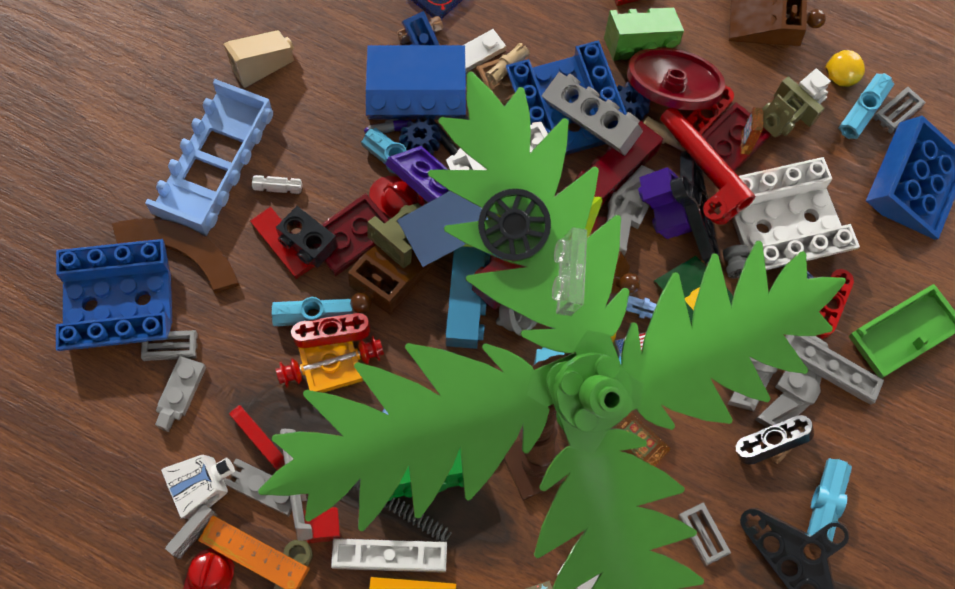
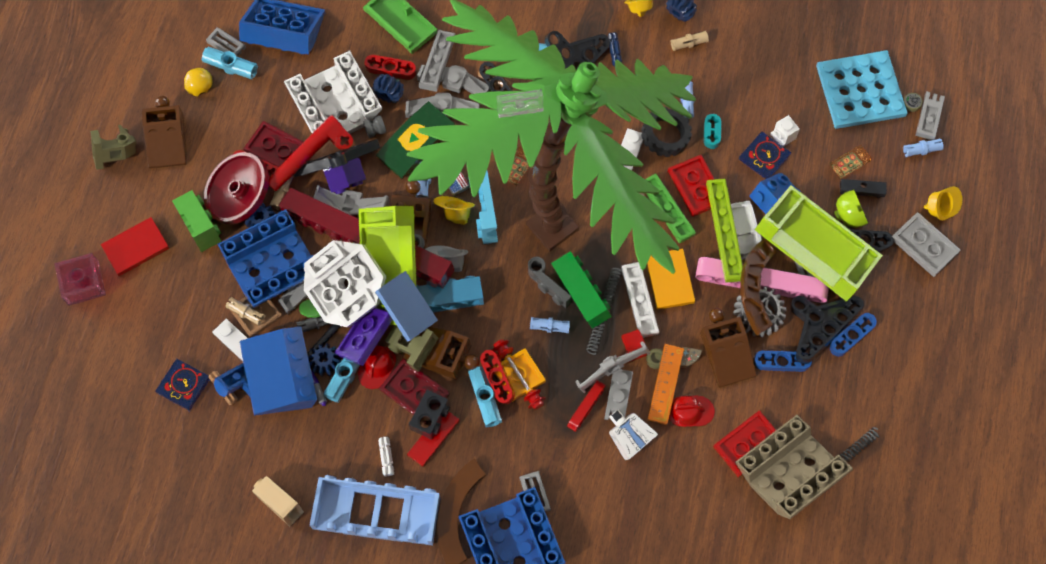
camera: 100 degrees left, 0 degrees up
(179, 392) = (567, 474): light grey hinge -> none
(190, 532) = (664, 429): light grey tile -> none
(514, 224) = (497, 139): black wheel -> none
(620, 138) = (274, 262): light grey brick -> none
(751, 130) = (274, 128): clear orange tile -> none
(785, 111) = (239, 109): olive tile -> none
(815, 85) = (224, 99): white brick -> none

